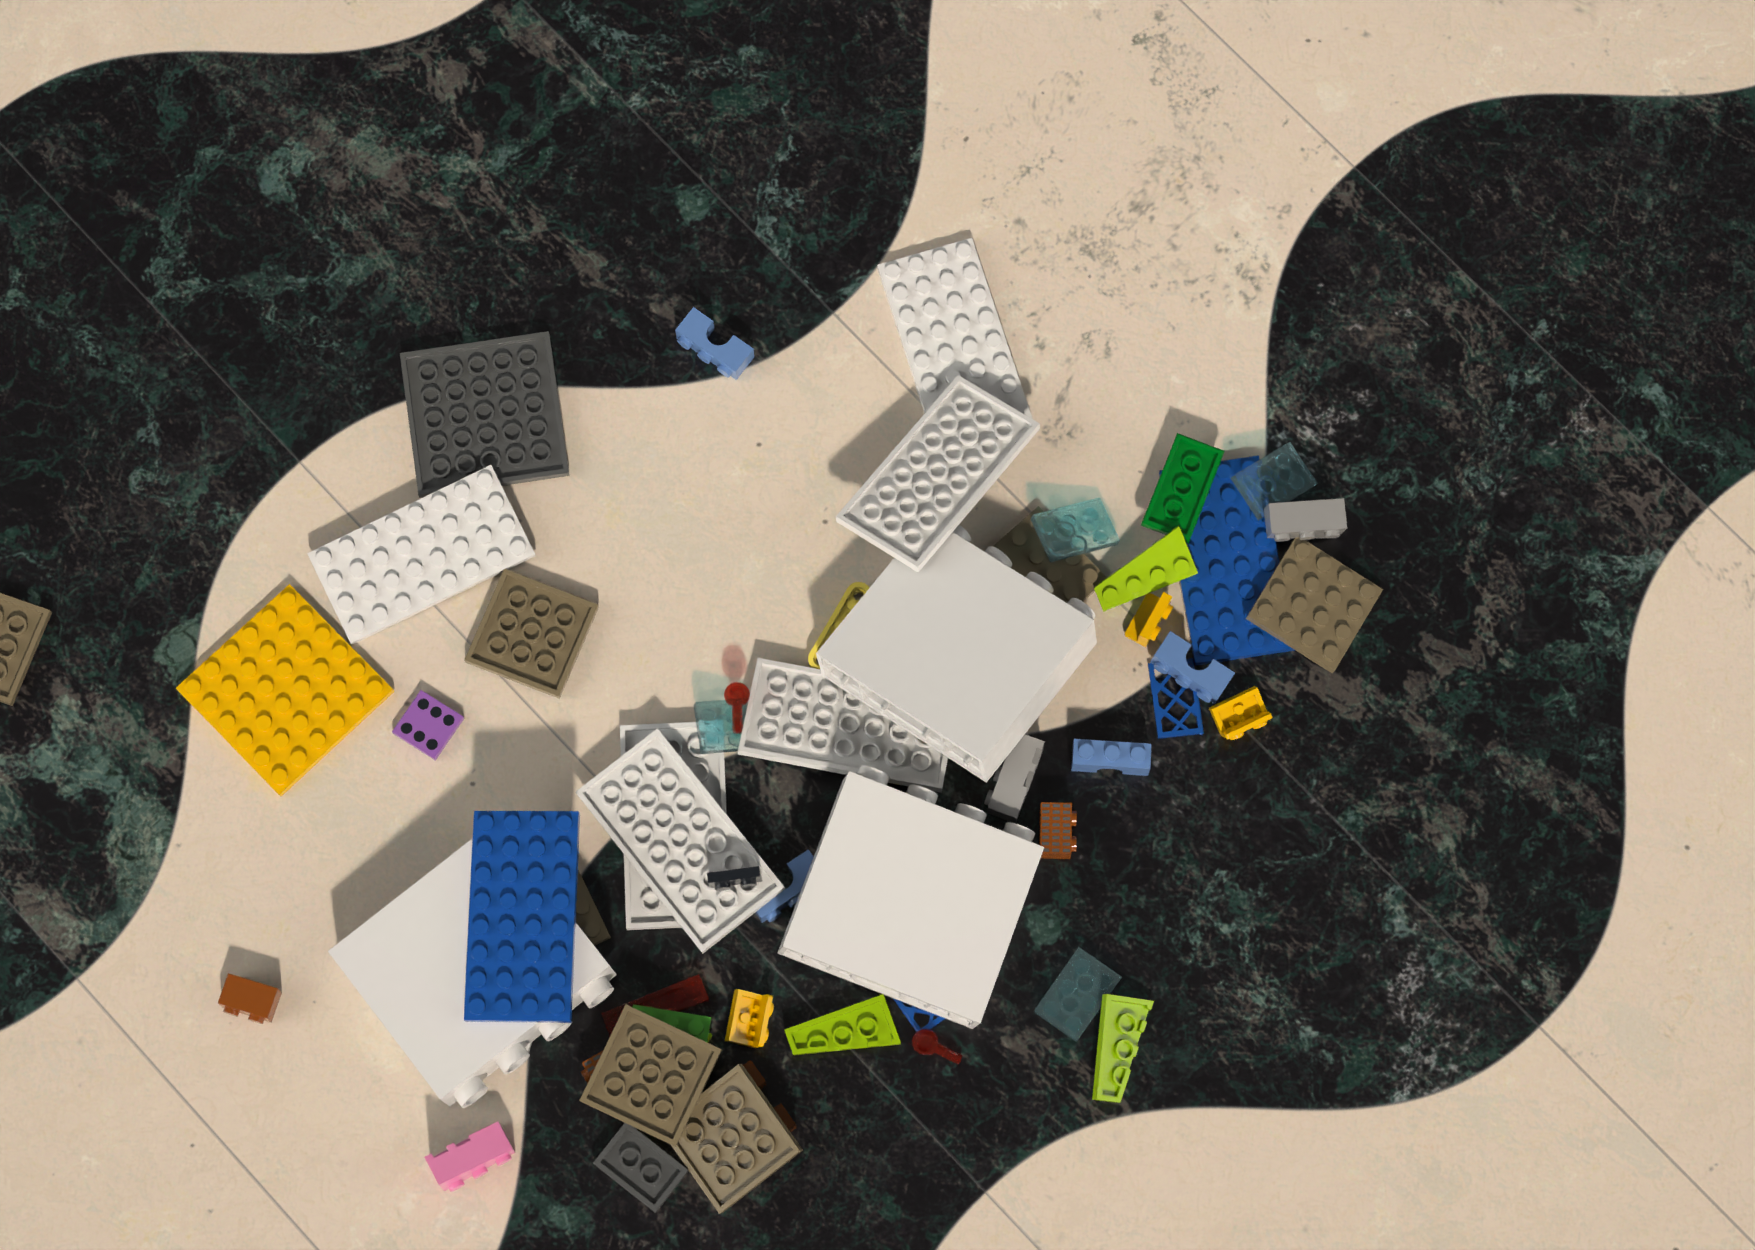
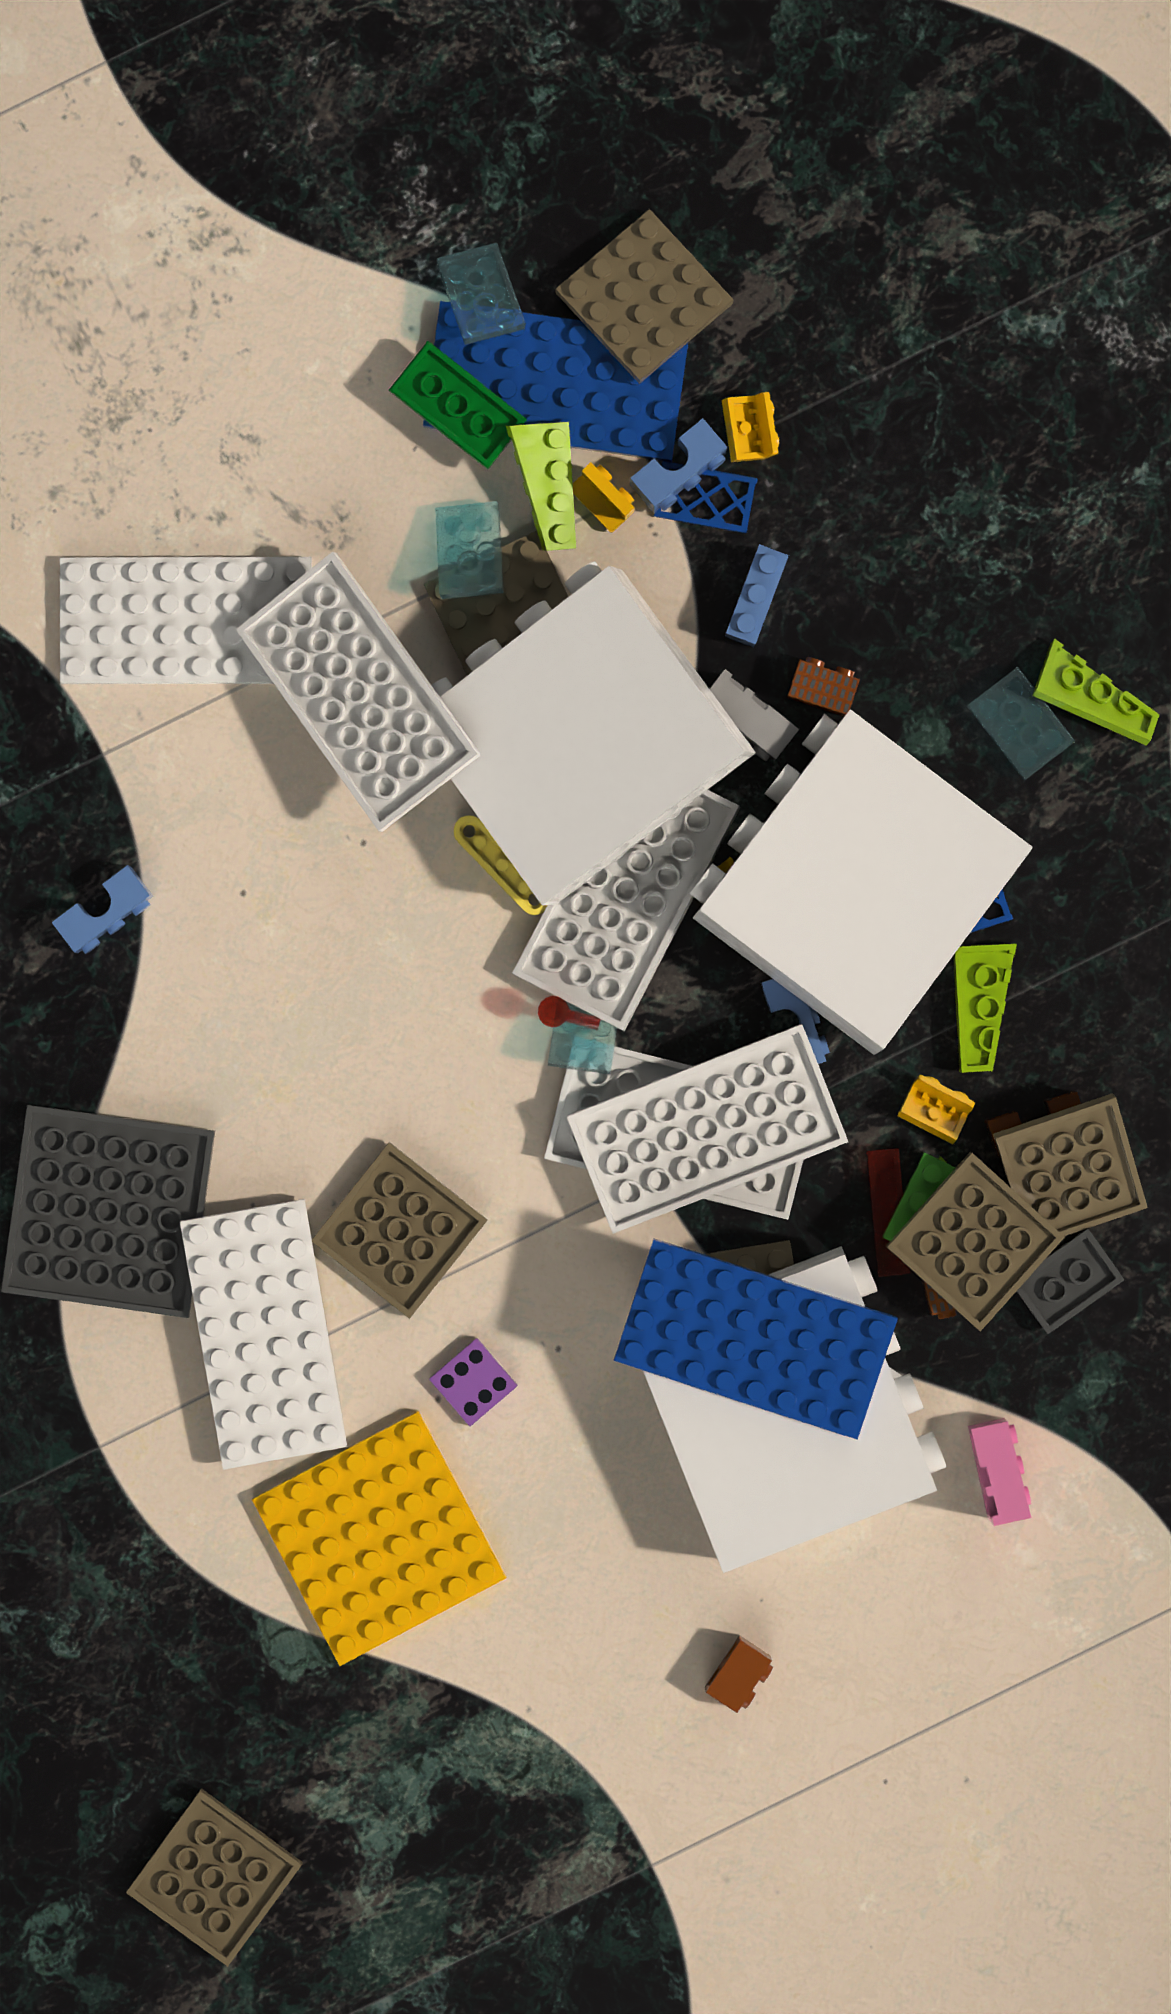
camera: 70 degrees left, 15 degrees up
(724, 879) = (781, 1065): black plate -> none
(926, 1043) = (1025, 913): clear red plate -> none
(1305, 519) = (546, 272): light grey wedge -> none

